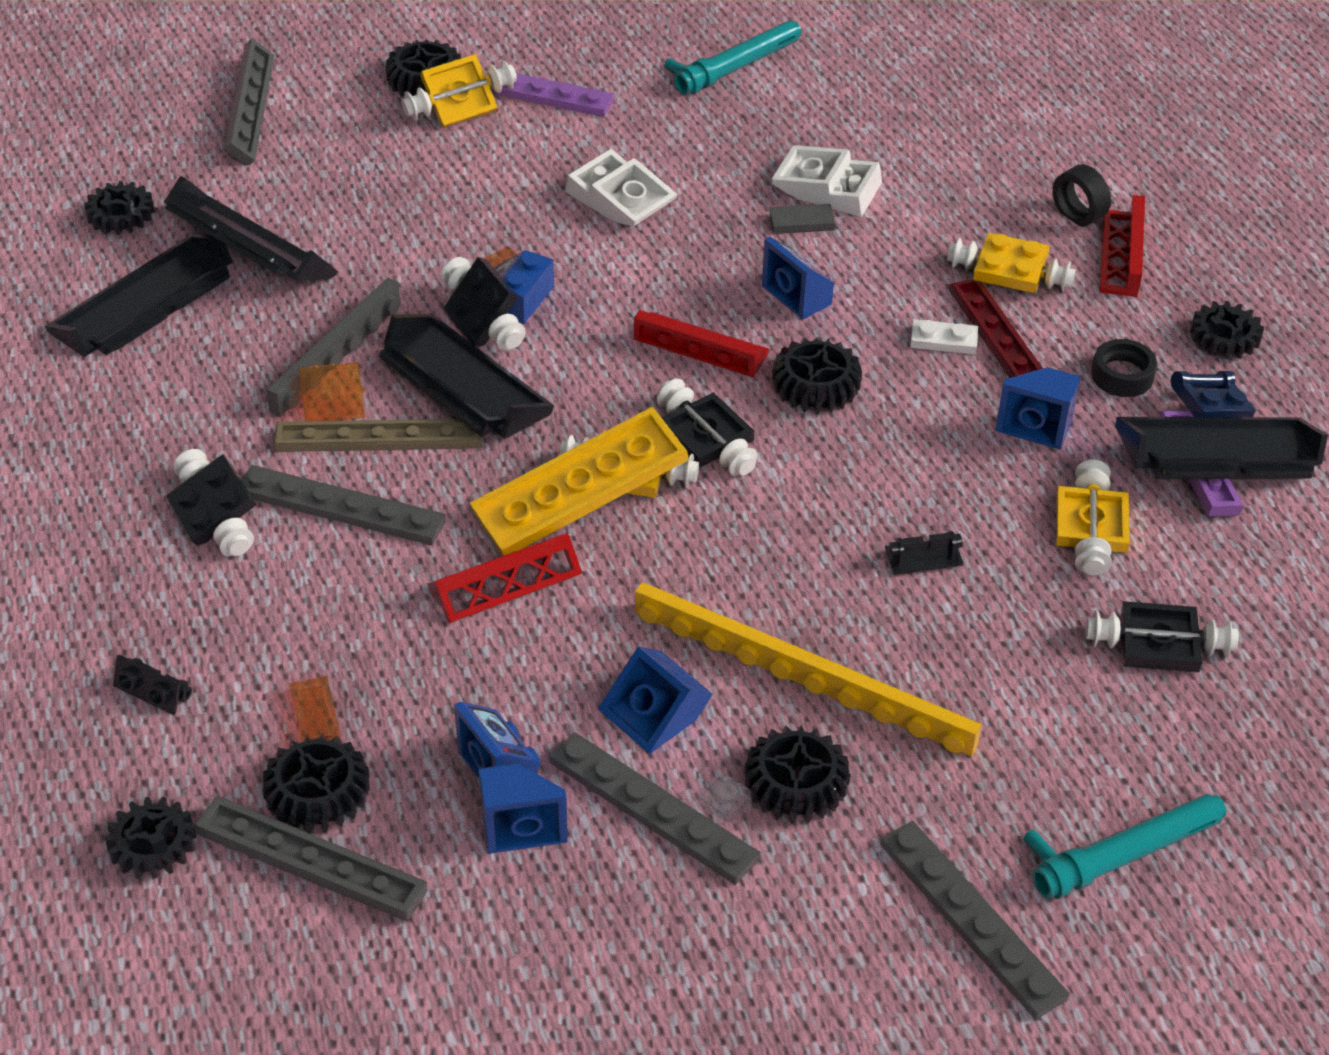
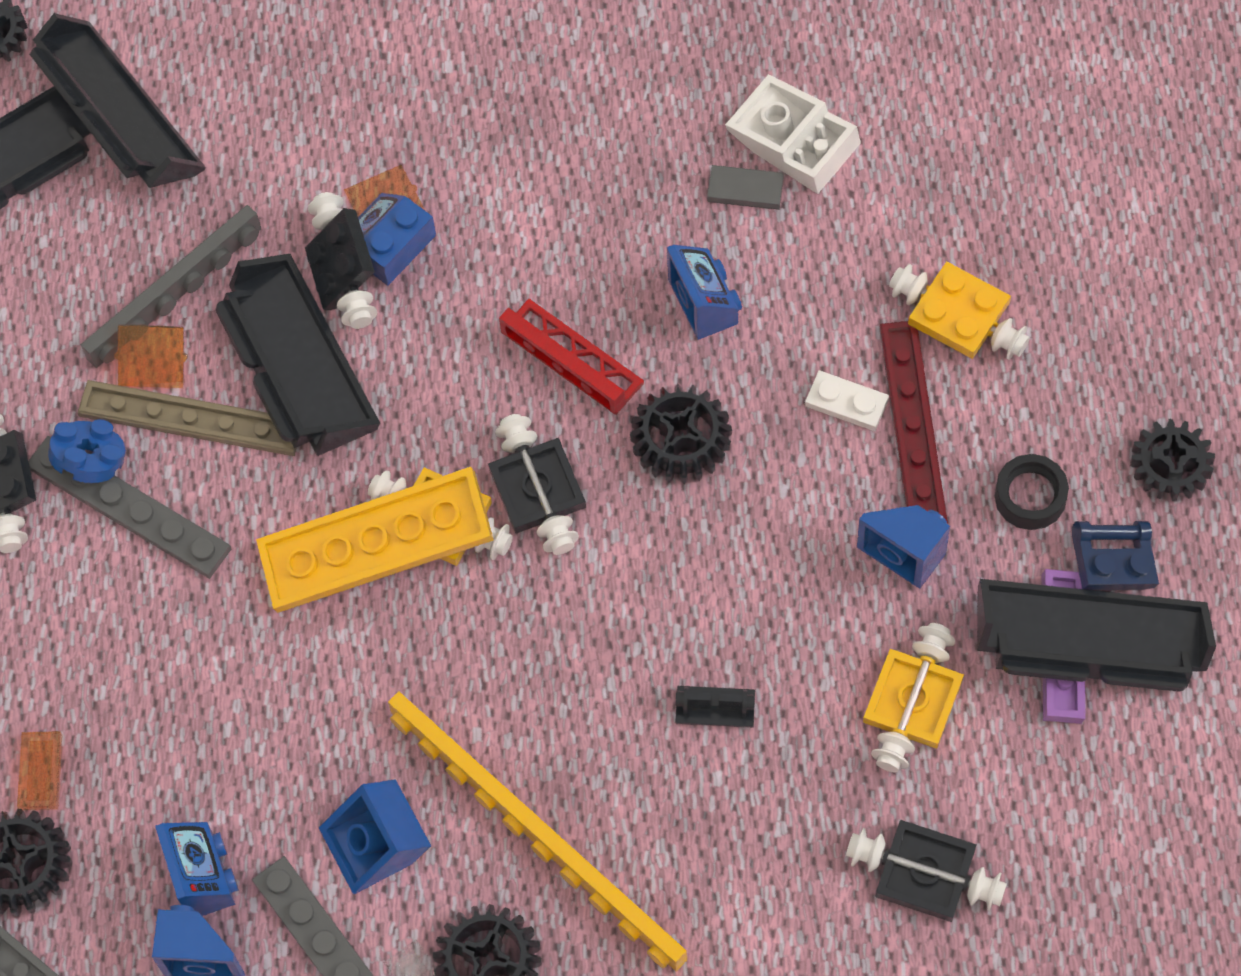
camera: 20 degrees right, 20 degrees up
(296, 463) = (69, 446): none -> blue plate
(496, 566) = (265, 628): red fence -> none
(619, 188) = (548, 106): white slope -> none
(1094, 188) = (1077, 225): black tyre -> none
(1134, 249) = (1114, 308): red fence -> none

